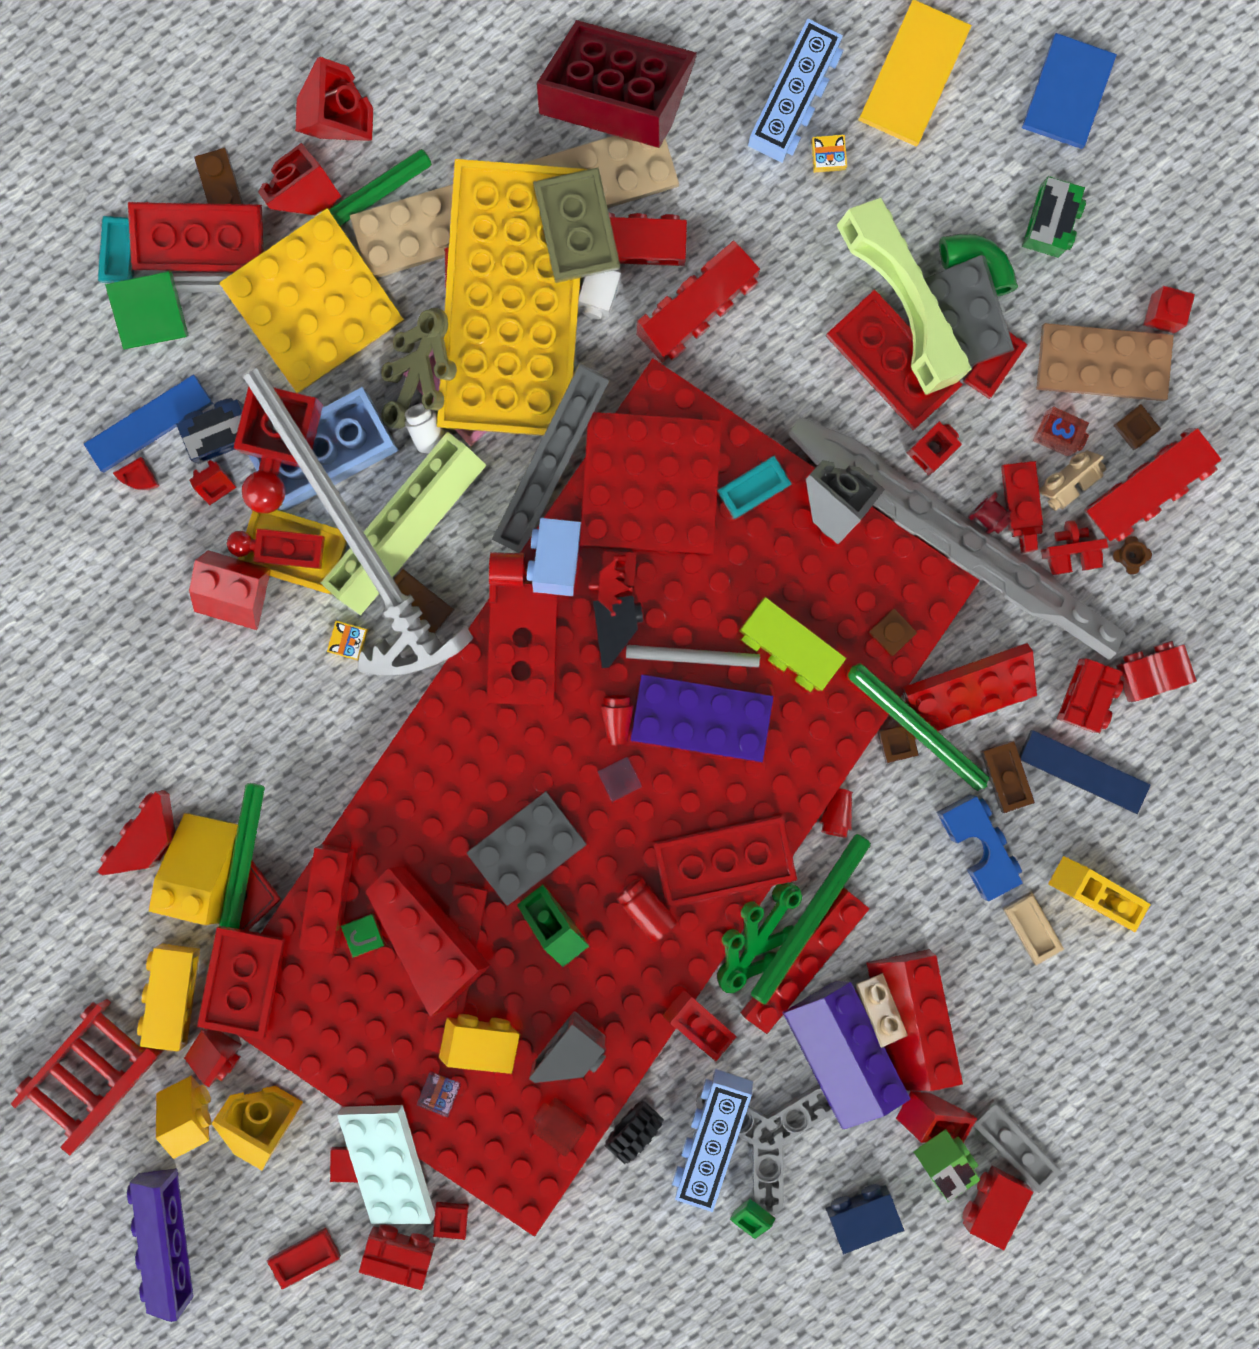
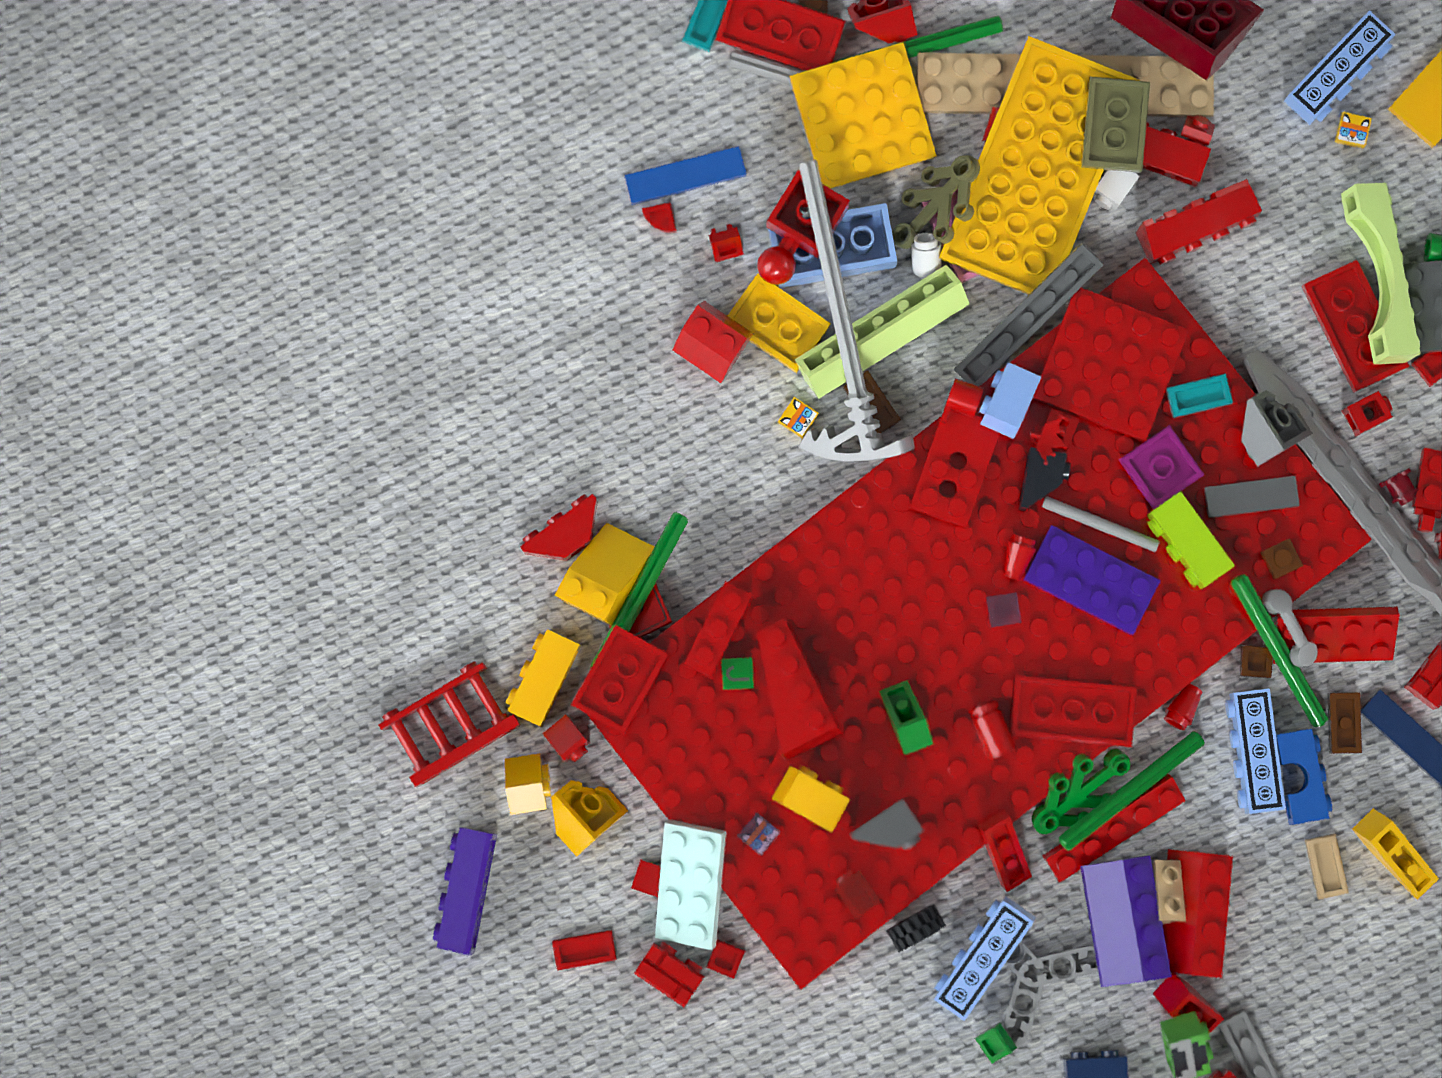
camera: 15 degrees right, 5 degrees down
(147, 310) = (717, 79): green tile -> none
(211, 432) = (743, 200): brick -> none
(279, 547) = (768, 318): red plate -> none
(526, 848) = (903, 644): dark grey plate -> none
(667, 203) = (1198, 129): none -> red plate
(738, 575) = (1161, 467): none -> magenta tile
(841, 577) = (1251, 497): none -> dark grey tile
(905, 679) = (1303, 652): none -> light grey bar
(926, 835) = (1256, 751): none -> light blue brick

